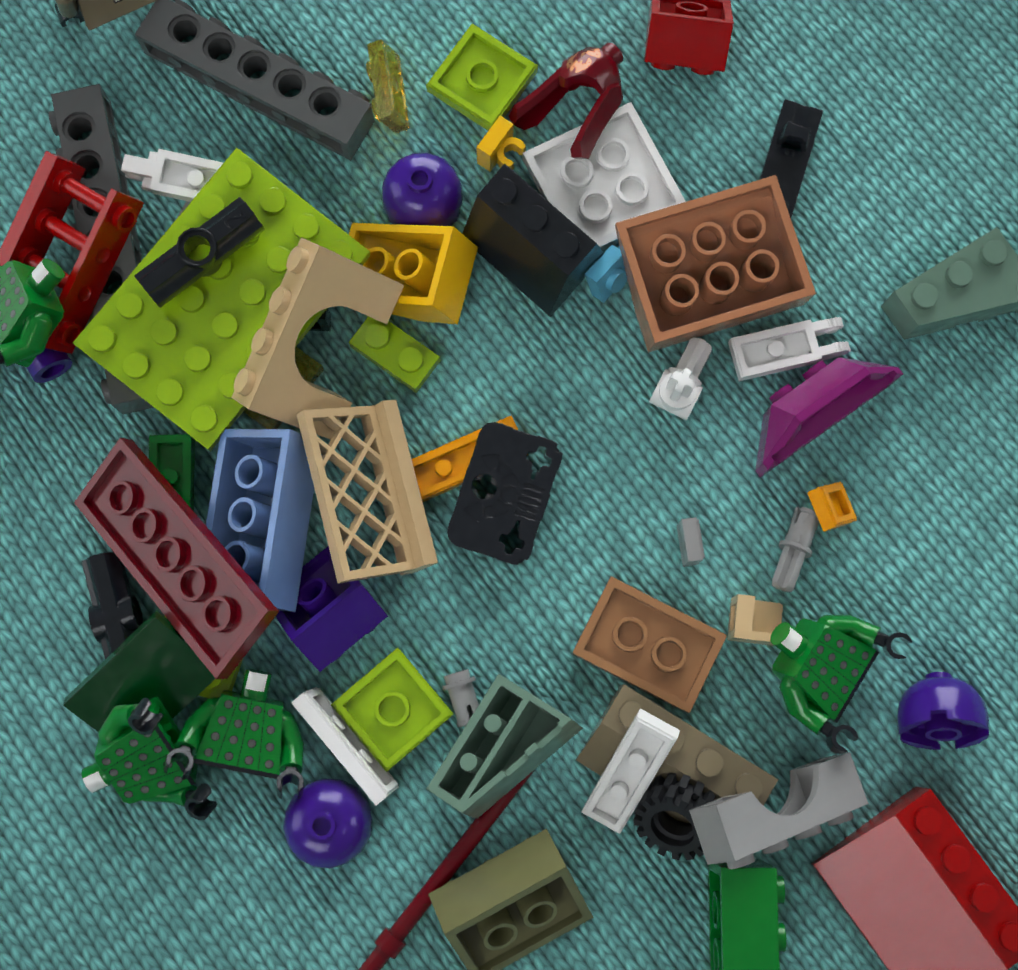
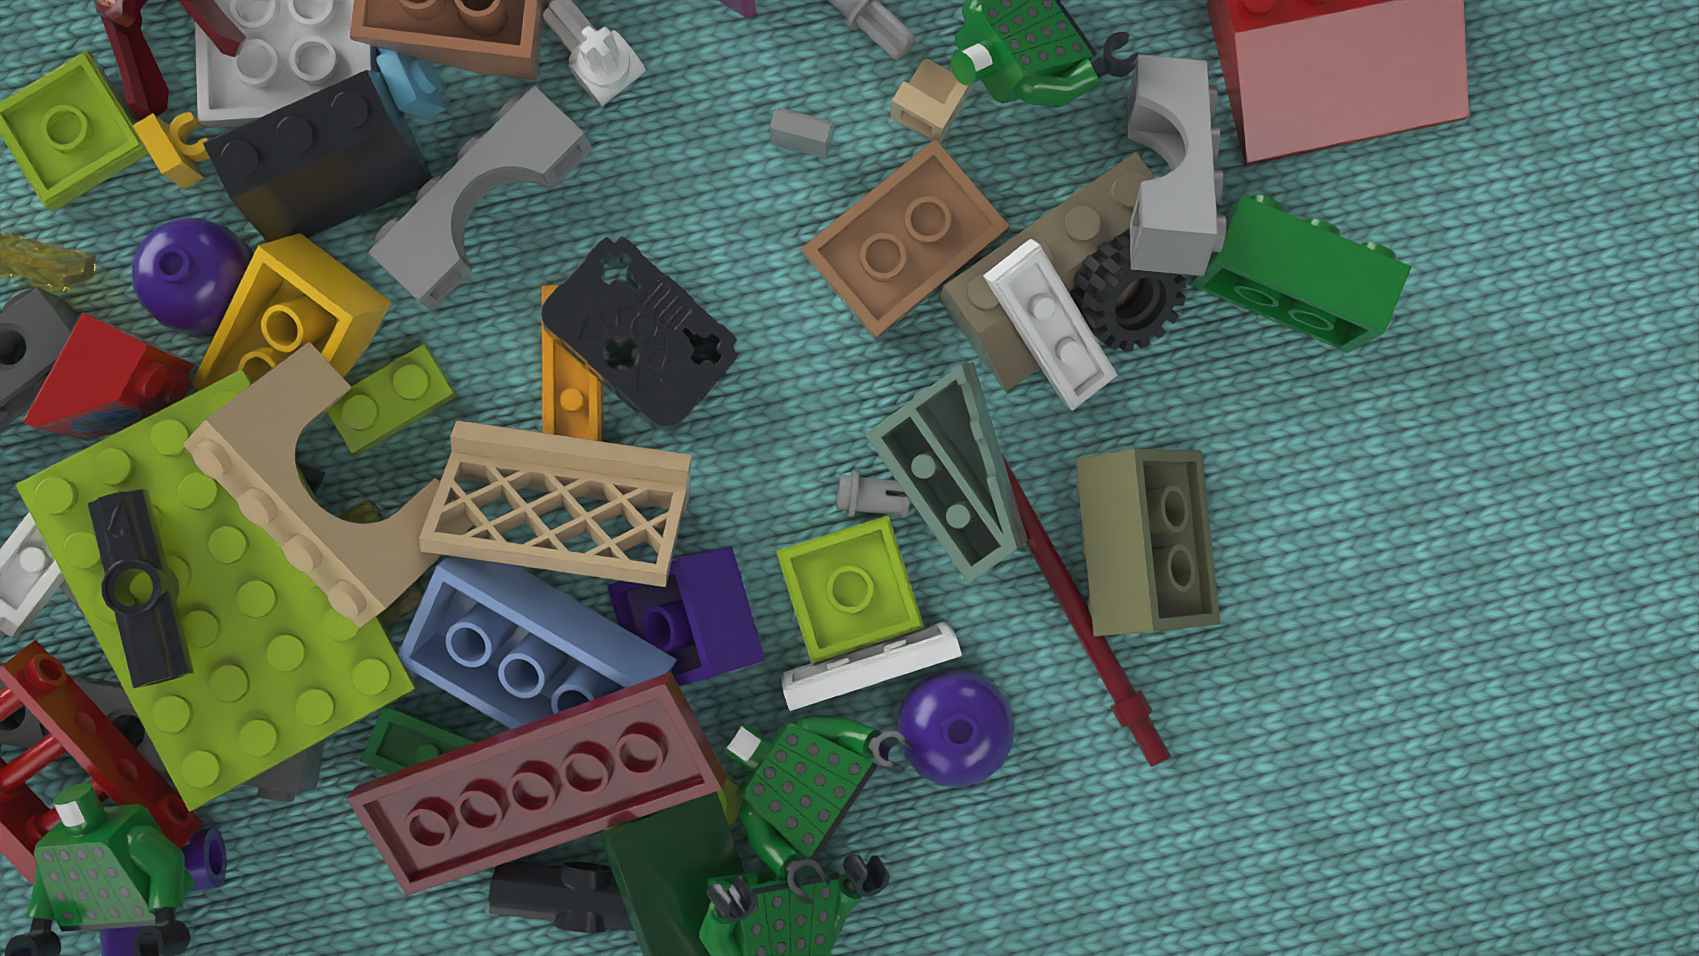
camera: 70 degrees left, 5 degrees up
(329, 173) = (107, 382): none -> red slope
(504, 331) = (526, 145): none -> light grey arch

